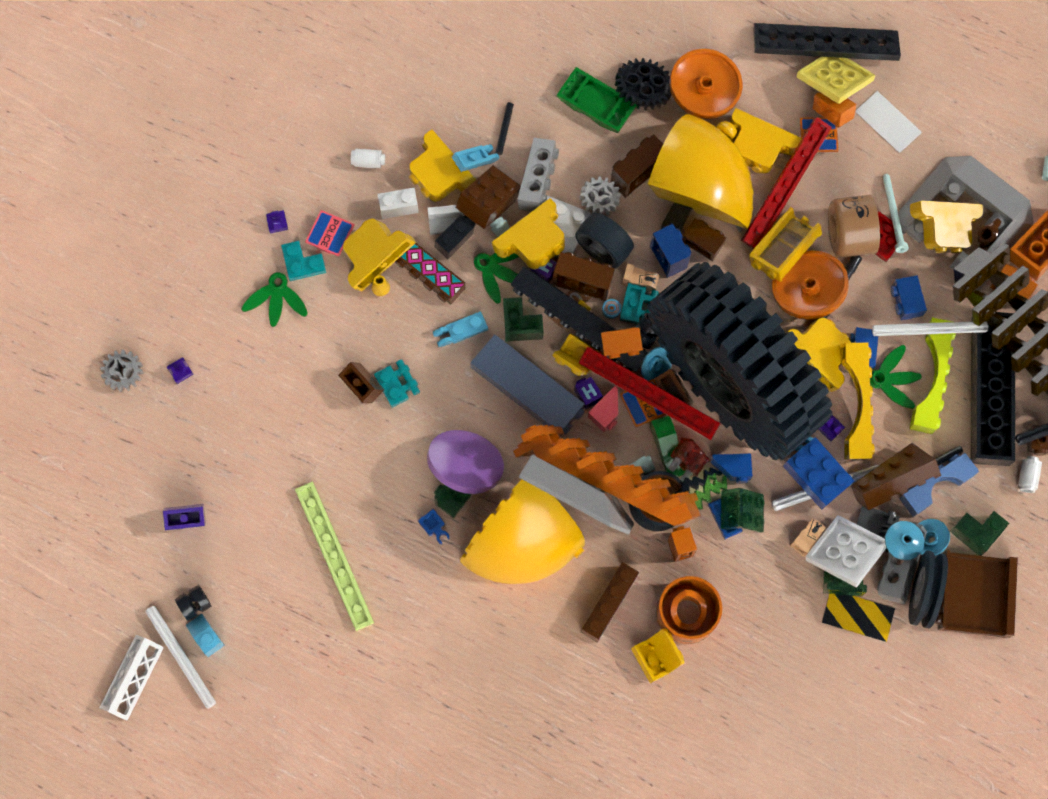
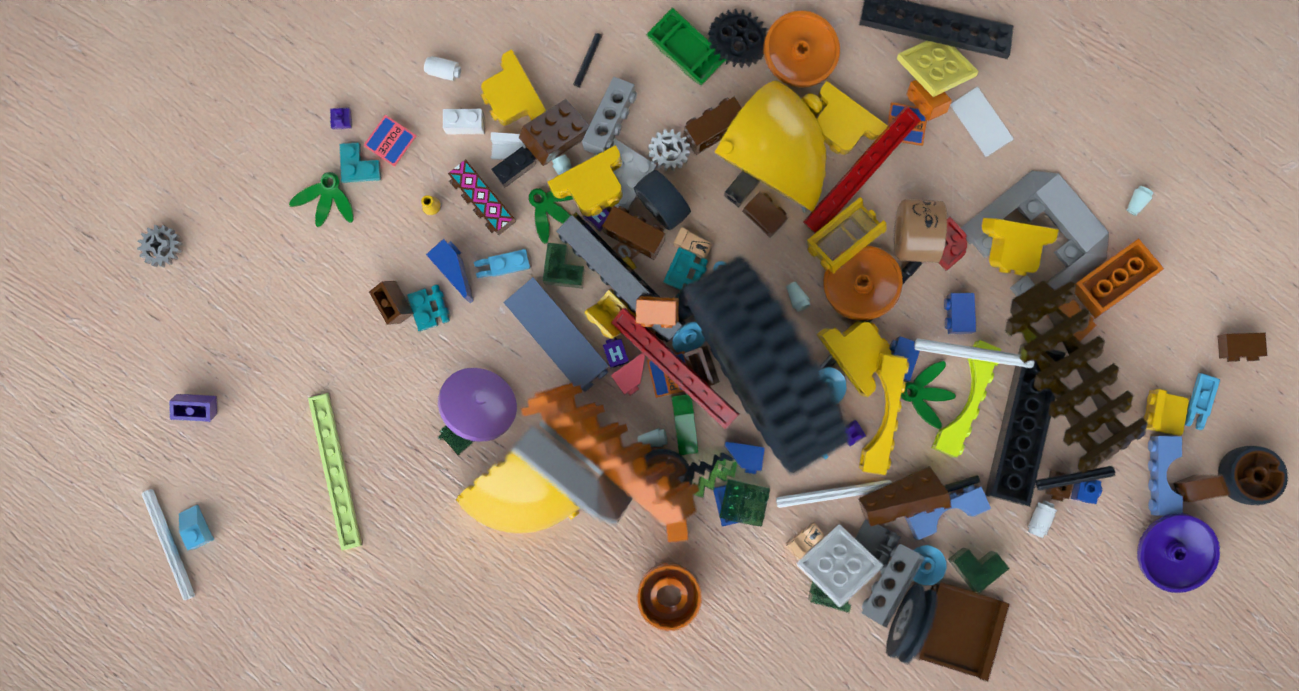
camera: 15 degrees right, 10 degrees up
(125, 674) = (112, 551): white fence -> none
(180, 370) = (217, 255): dark purple tile -> none
(186, 605) = (185, 495): black wheel -> none
(373, 251) = (428, 168): yellow brick -> none
(410, 335) = (449, 262): none -> blue slope
(432, 525) = (435, 458): blue plate -> none
(474, 157) = (549, 87): medium azure hinge -> none
(609, 602) = (593, 571): reddish brown brick -> none
(611, 308) = (657, 269): medium azure tile -> none
(658, 655) = (629, 634): yellow bracket -> none
(670, 250) = (727, 221): blue brick -> none
(689, 458) = (702, 439): clear red piece -> none
(818, 473) = (830, 485): blue brick -> none
(859, 616) = (839, 629): sticker -> none
(895, 540) = (892, 561): medium azure dish -> none
(901, 246) = (965, 260): light aqua bar -> none
(988, 233) = (1058, 261): reddish brown animal -> none

